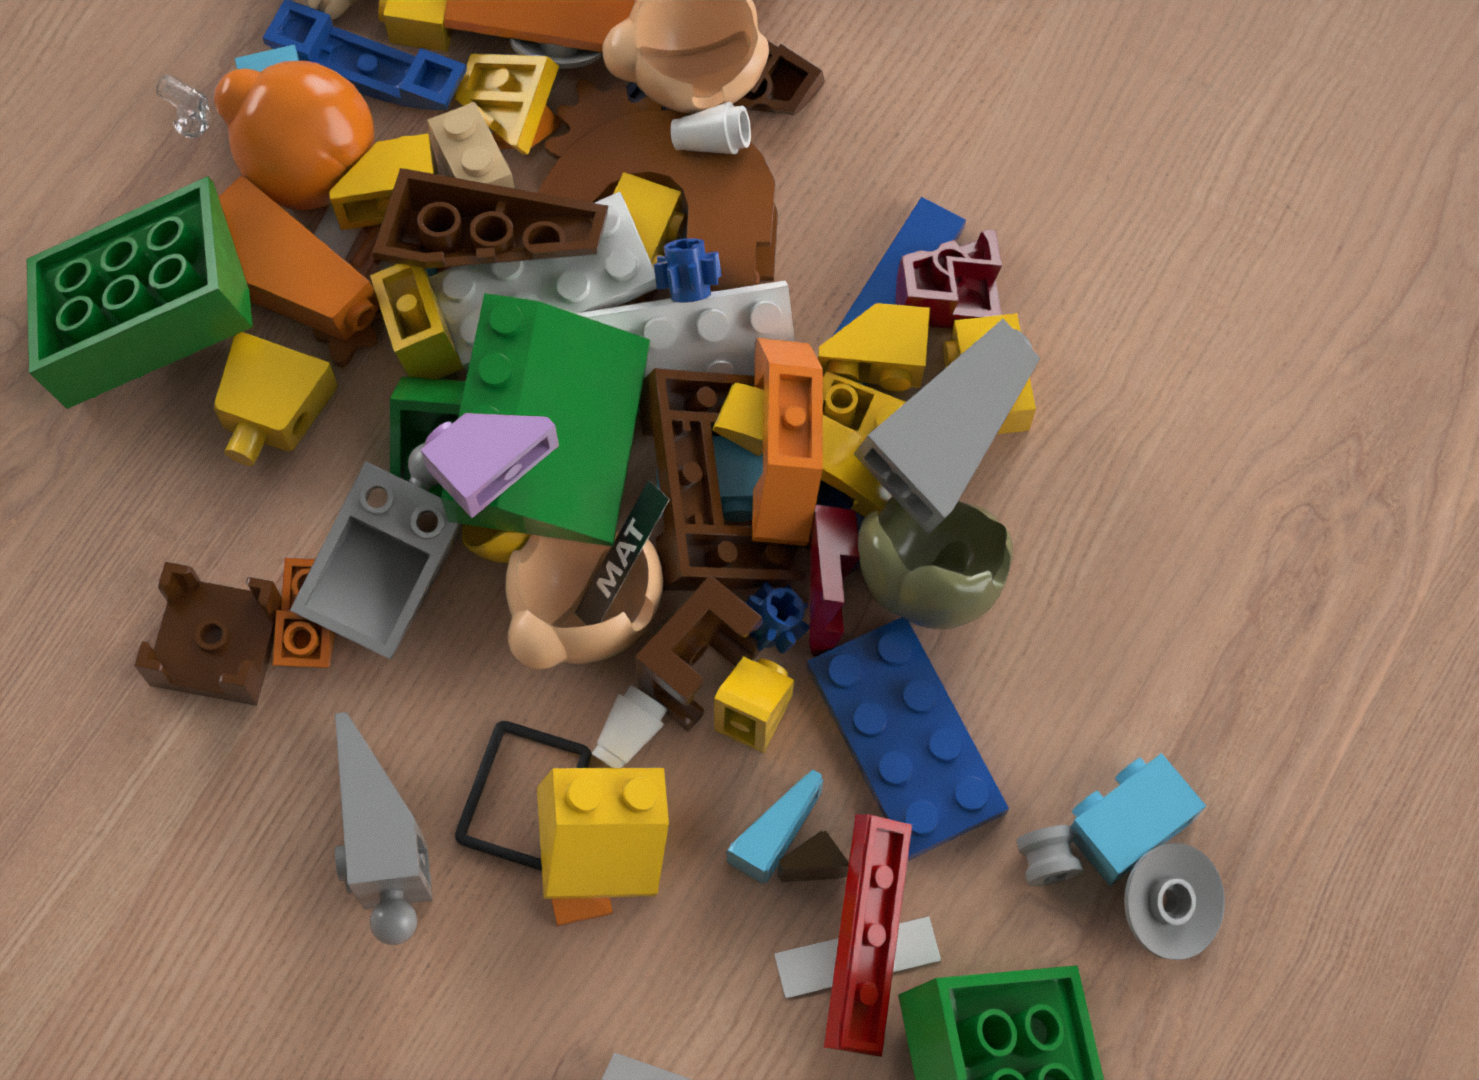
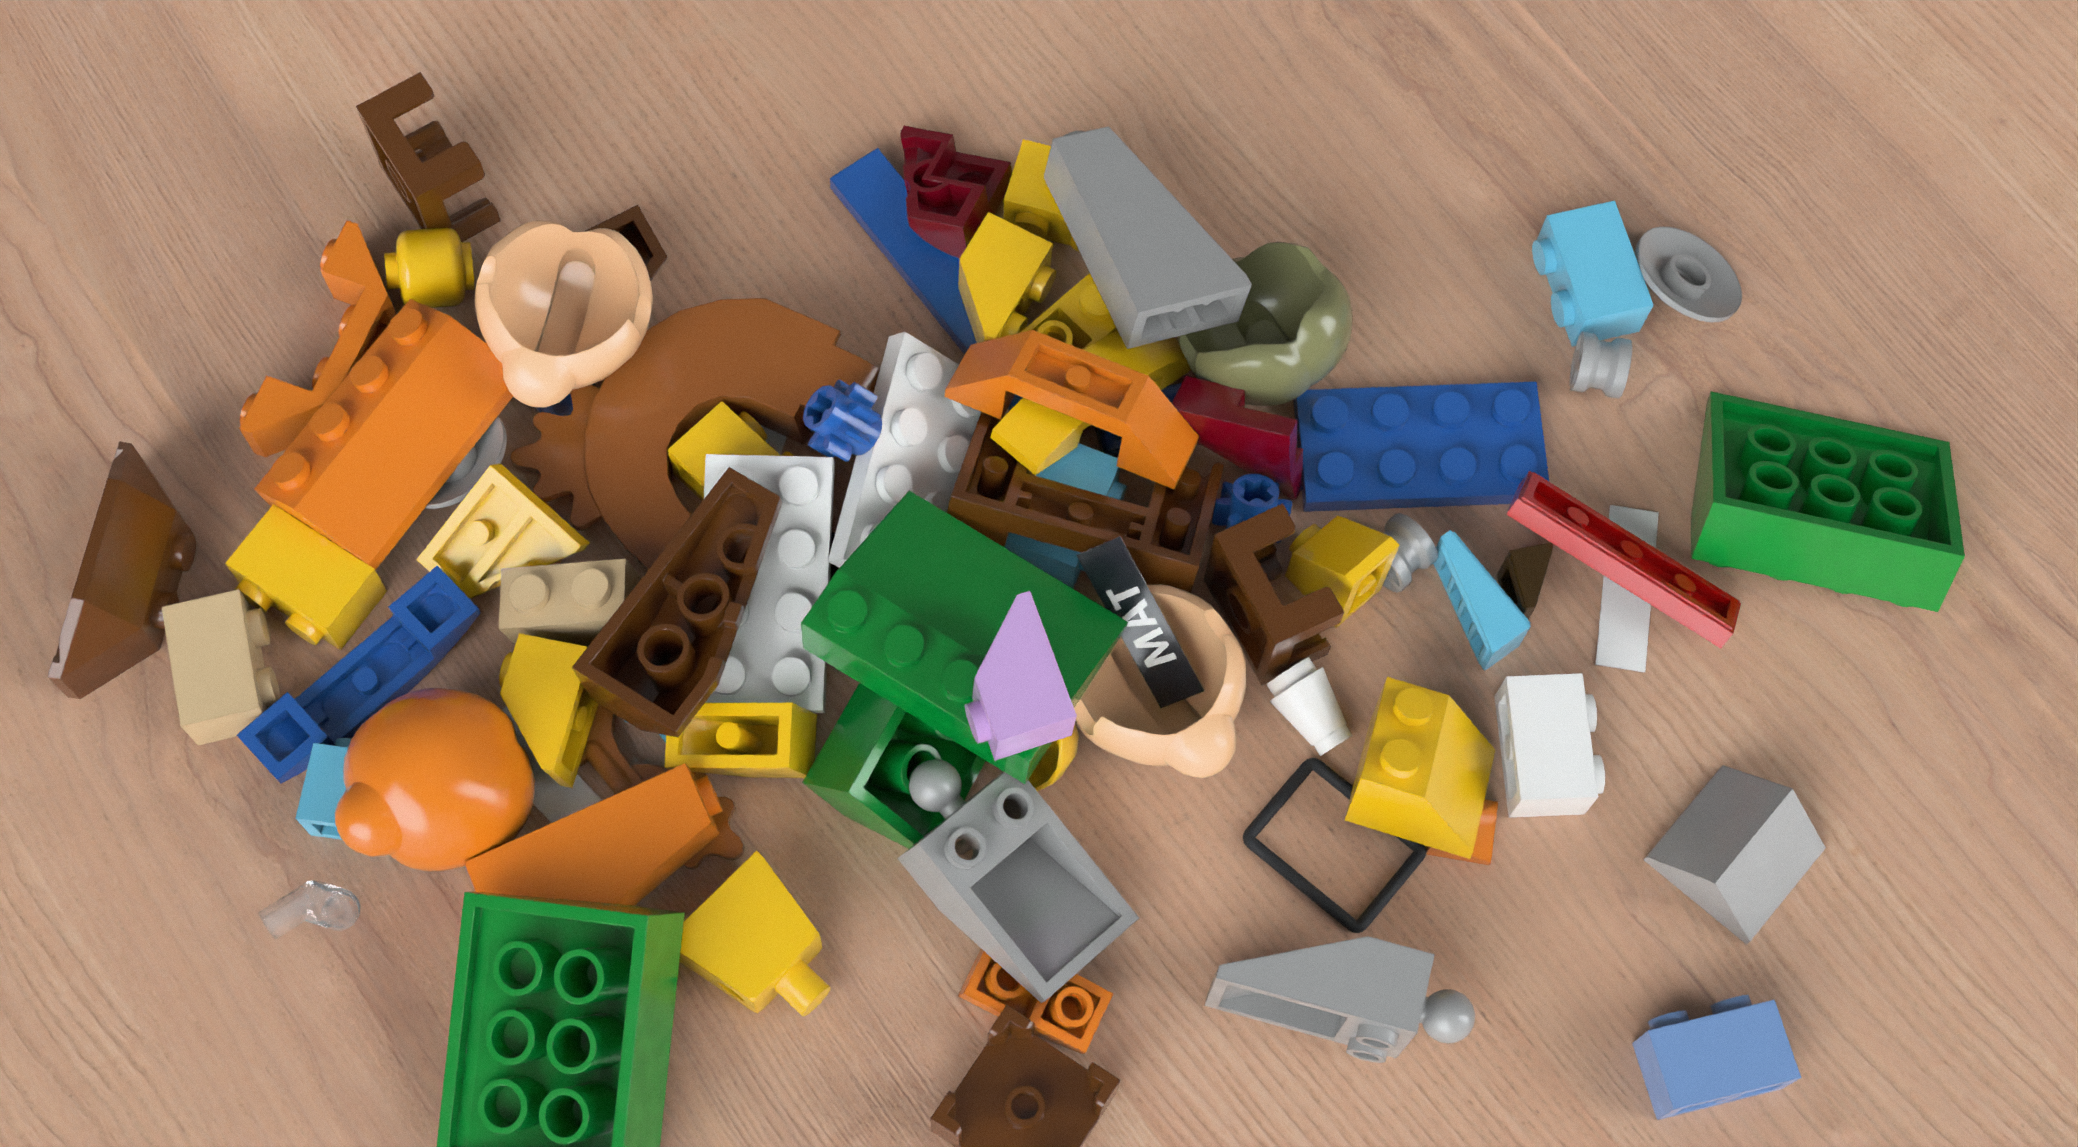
camera: 70 degrees left, 0 degrees up
(673, 930) = (1548, 745): none -> white brick
(713, 130) = (672, 333): white cone -> none
(793, 747) = (1414, 552): none -> light grey wheel

